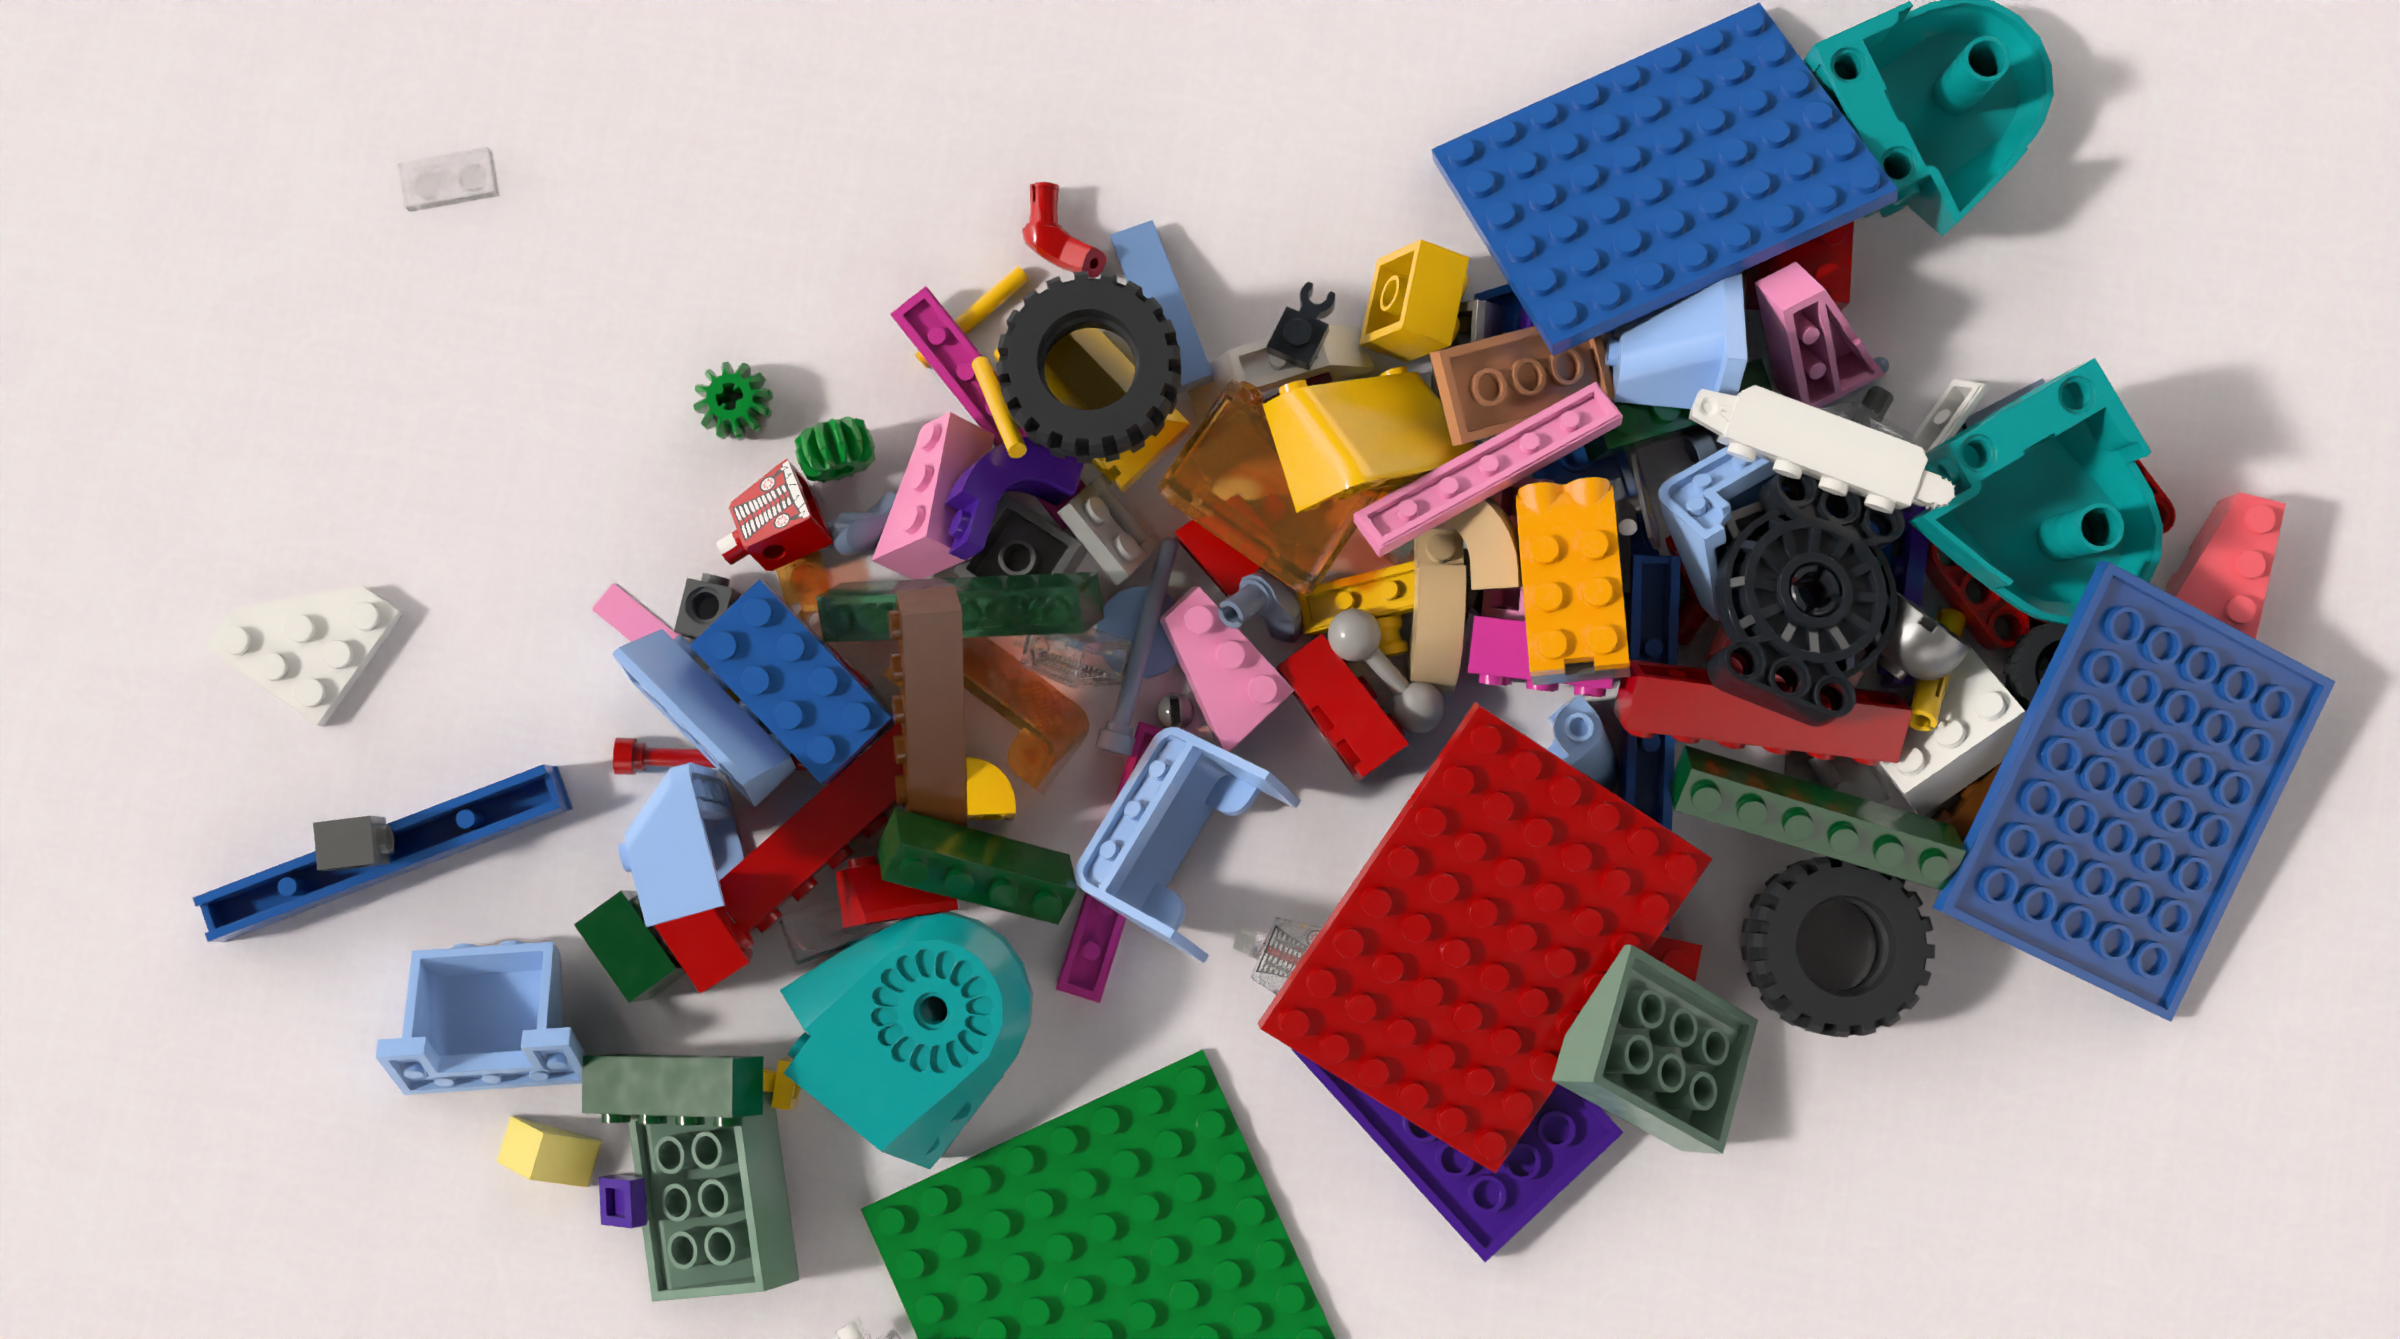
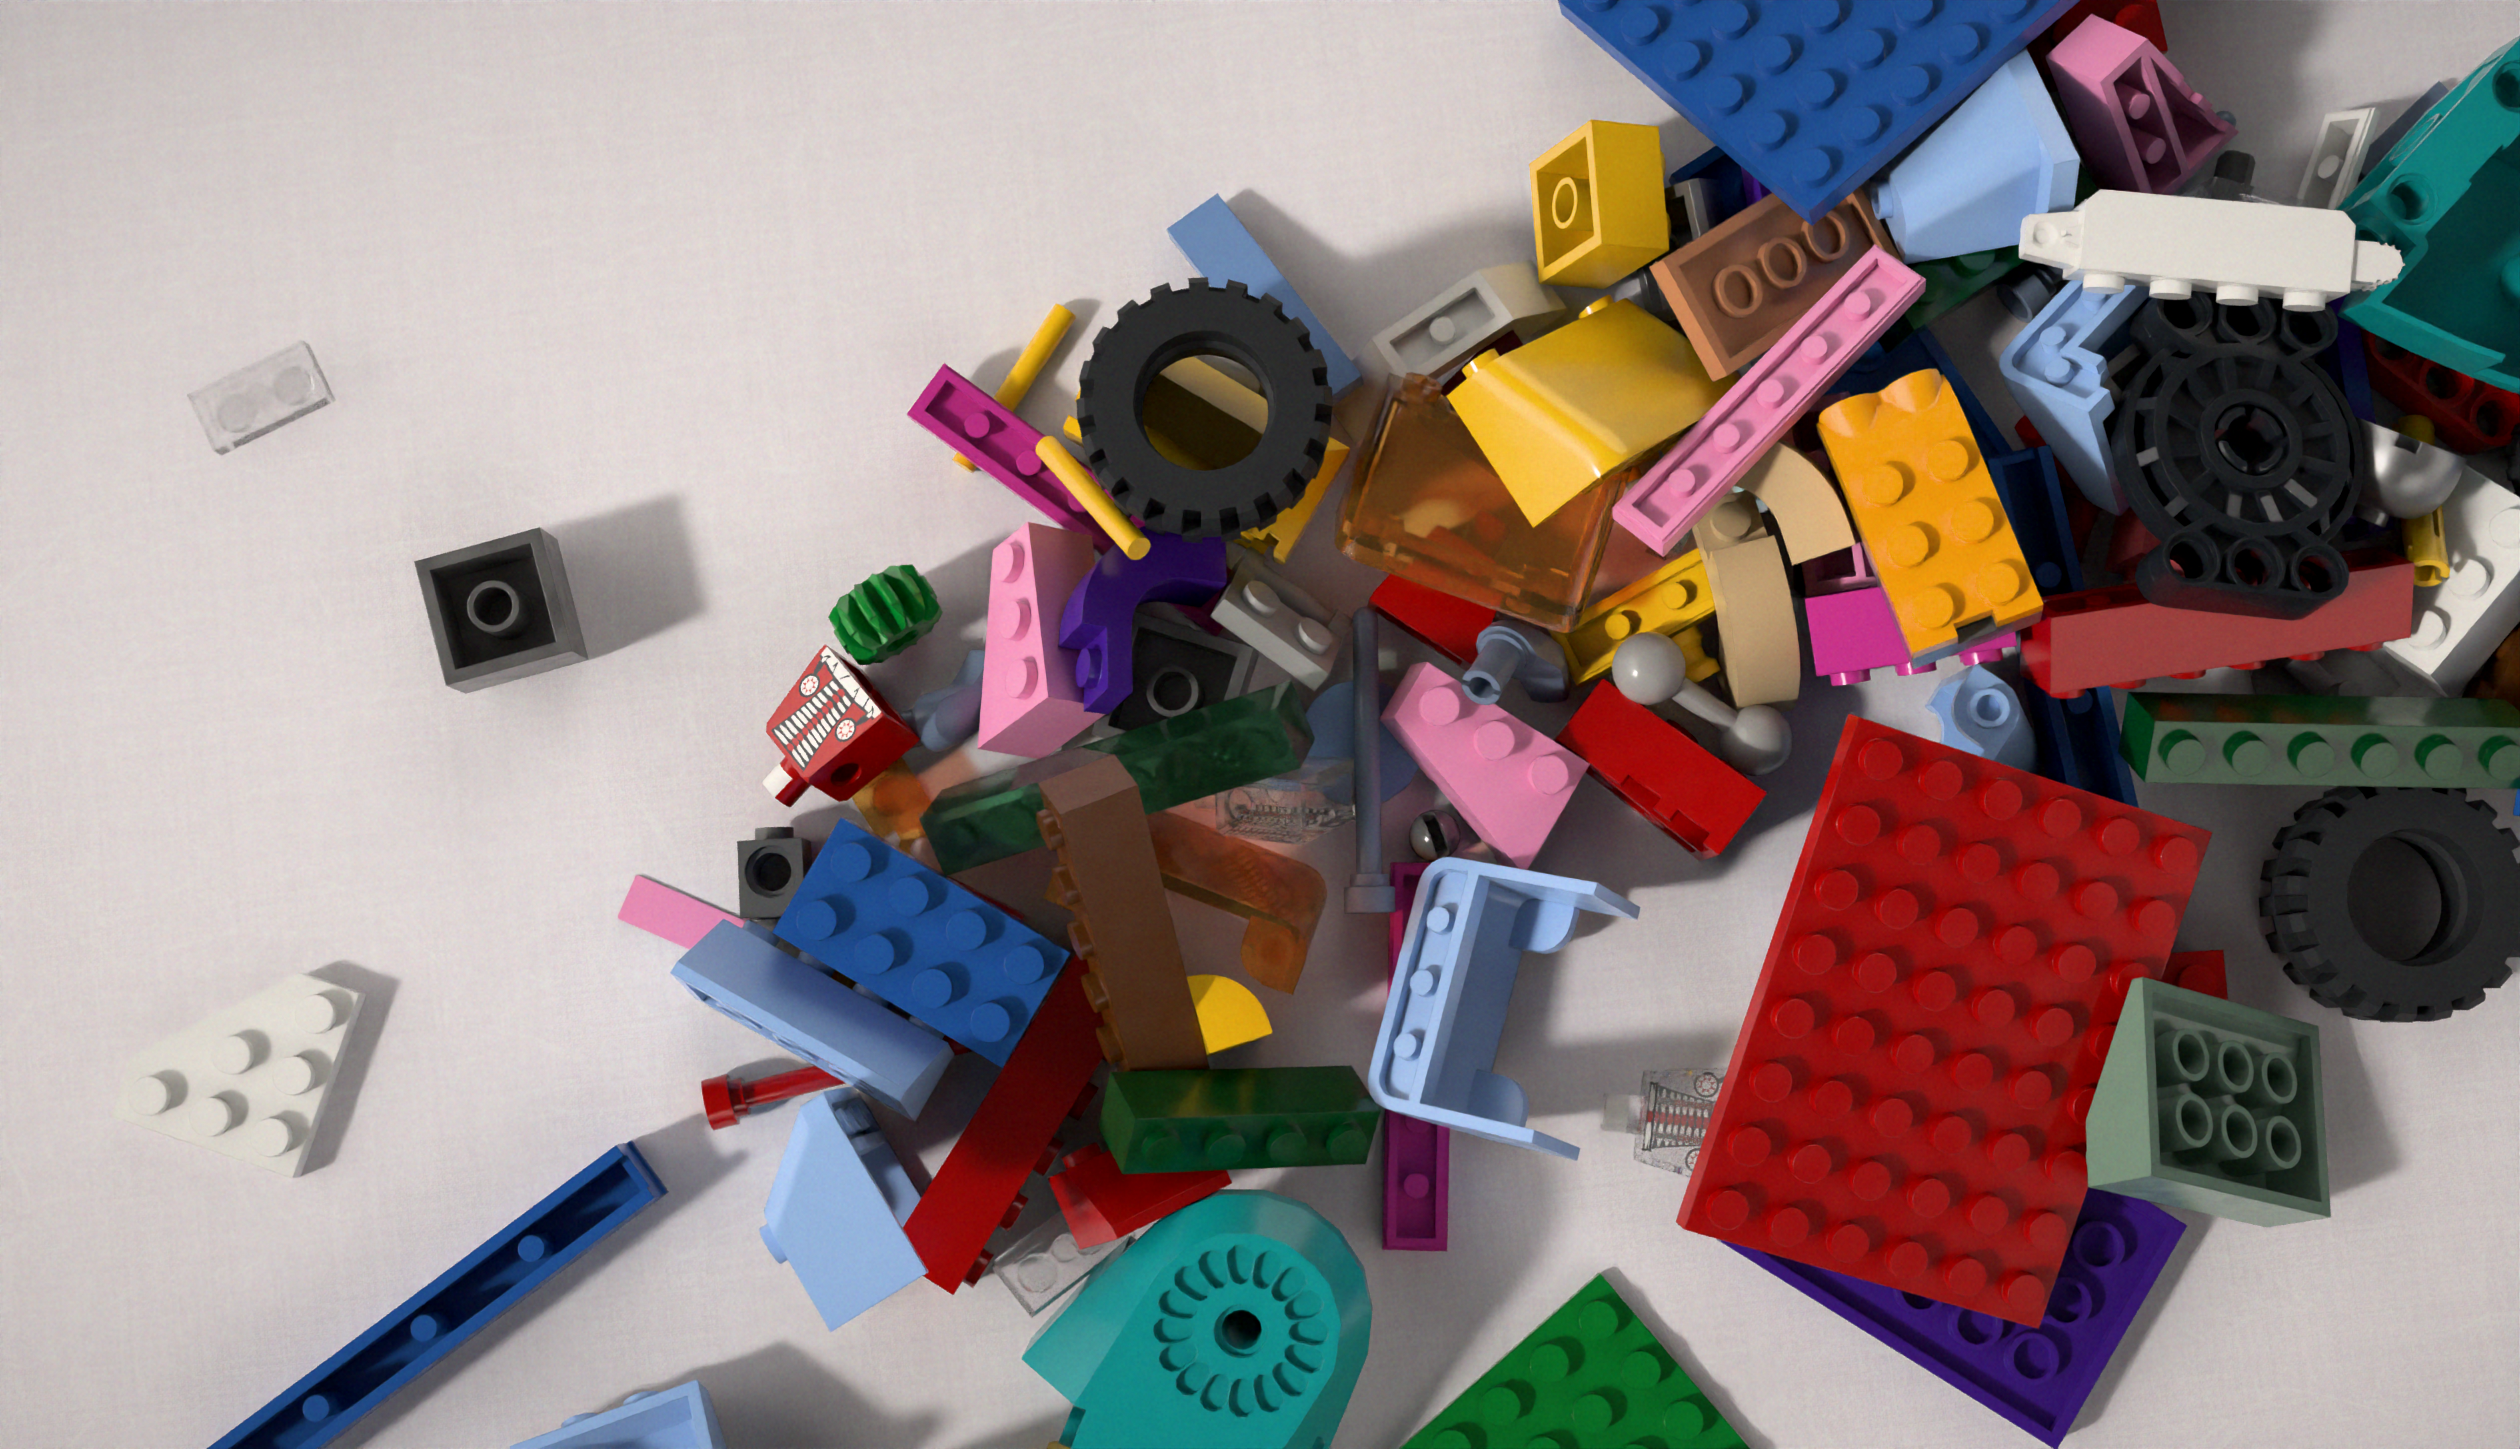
camera: 20 degrees left, 0 degrees up
(352, 843) = (390, 1325): dark grey brick -> none
(570, 373) = (501, 610): none -> flat silver brick
(628, 949) = (803, 1361): dark green brick -> none
(708, 945) = (914, 1331): red slope -> none
(719, 392) = (708, 582): green gear -> none
(1052, 241) = (1093, 258): red arm -> none
(1301, 332) = (1464, 288): black plate -> none
(1628, 508) = (1974, 389): flat silver shield -> none

